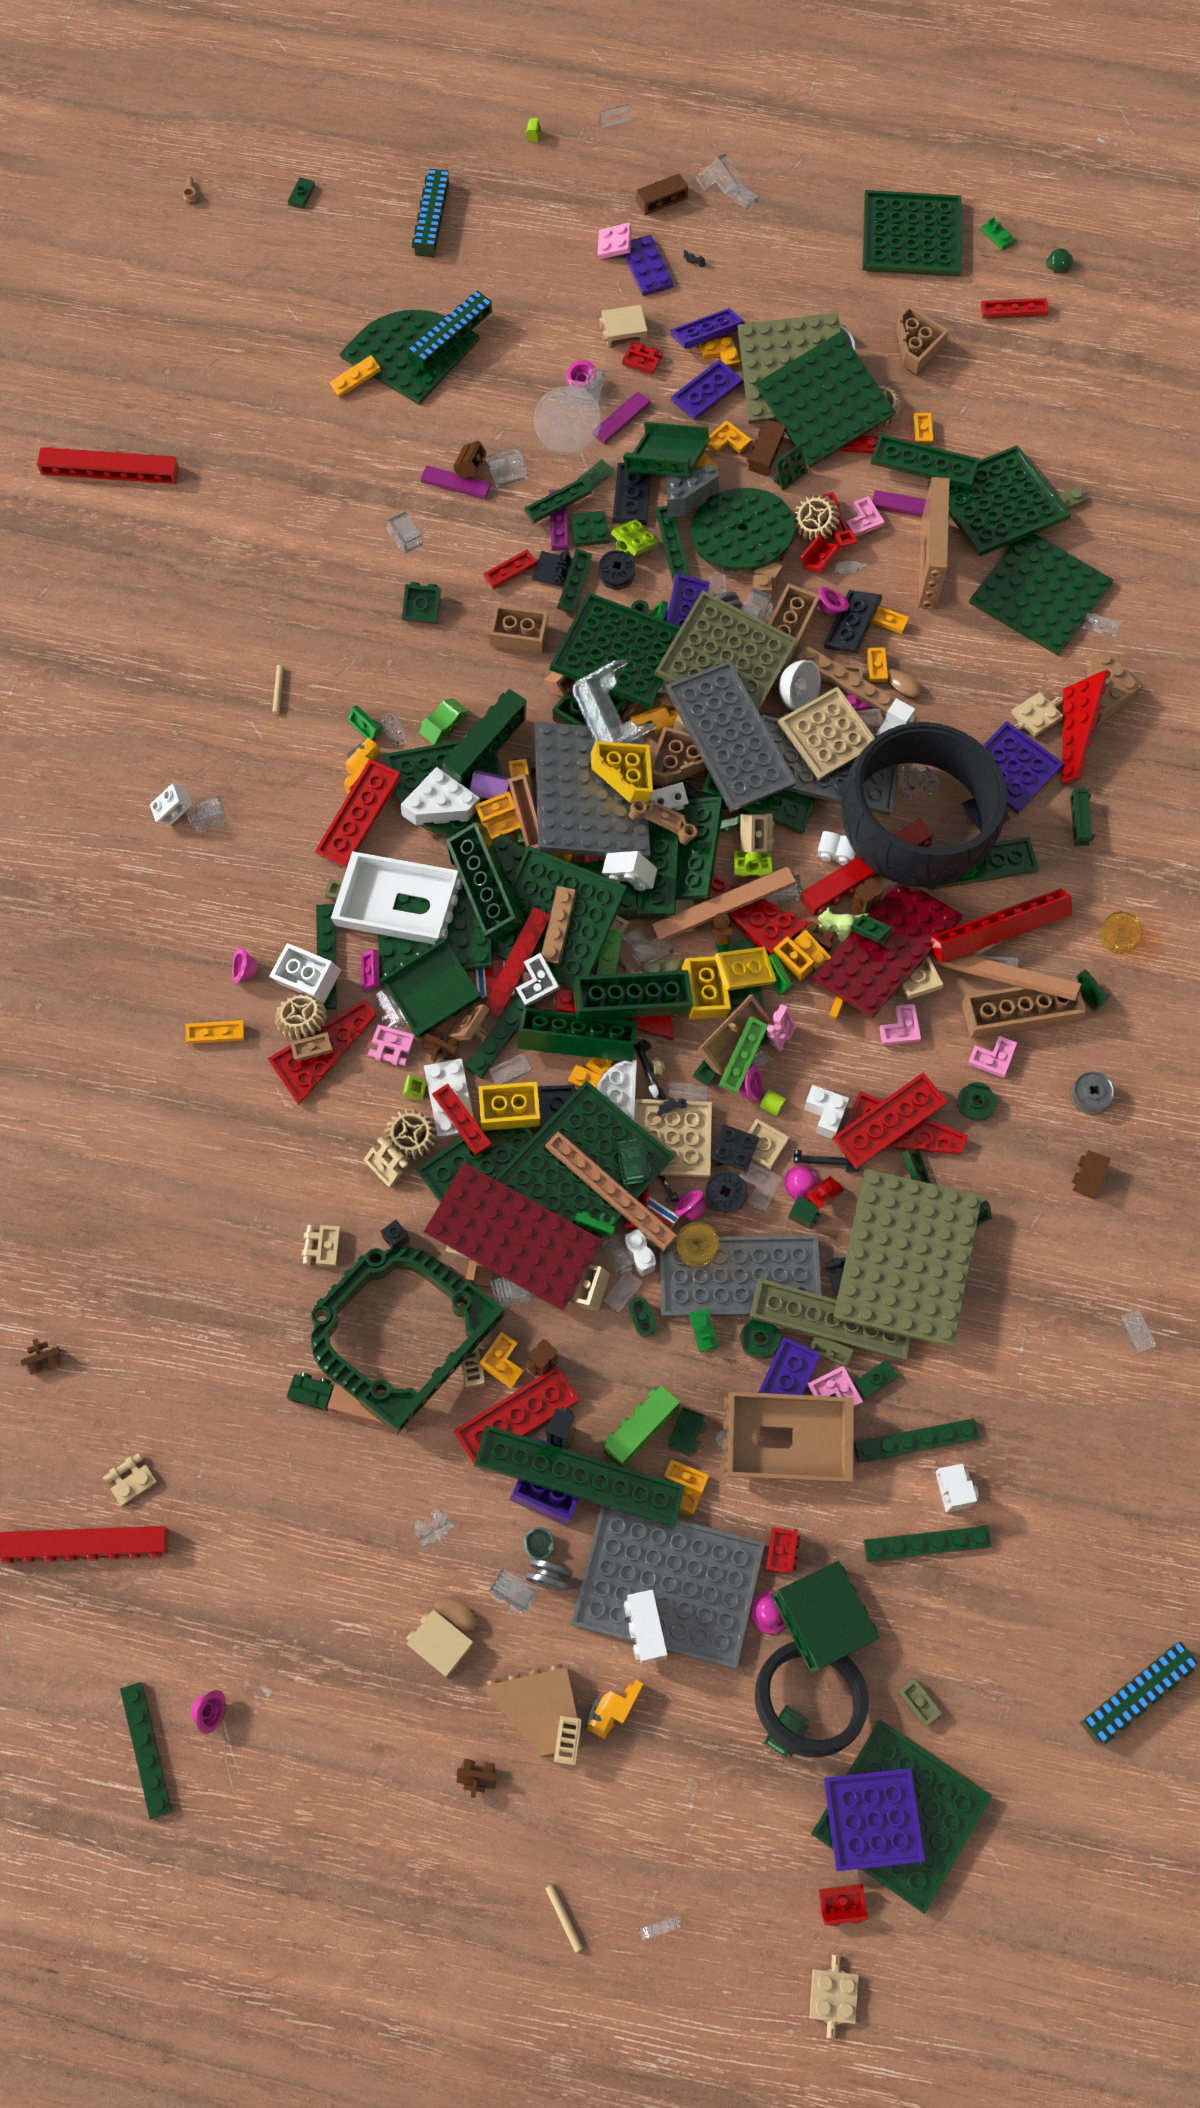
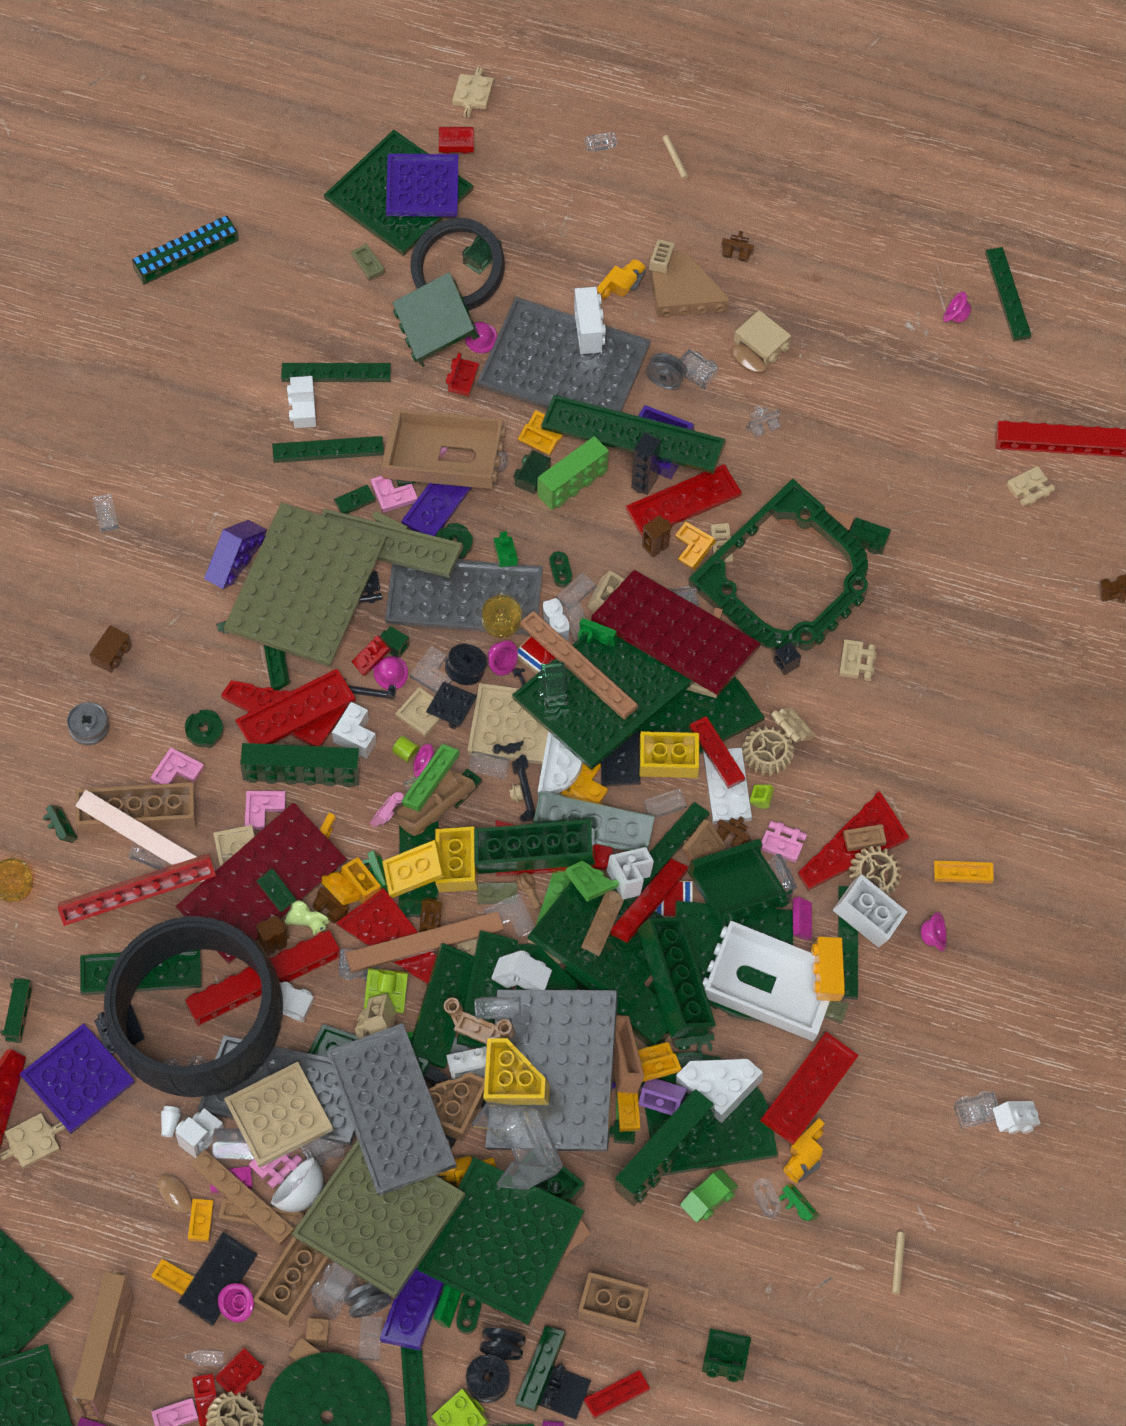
camera: 175 degrees left, 5 degrees down
(343, 904) = (828, 969): none -> light orange brick
(538, 1543) = (673, 399): sand green hair -> none
(574, 961) = (589, 880): none -> bright green wing
(609, 585) = (502, 1343): none -> black wheel
(647, 824) = (497, 1007): none -> clear brick
(873, 1064) = (300, 764): none -> dark green brick
(988, 1292) = (234, 552): none -> dark purple brick

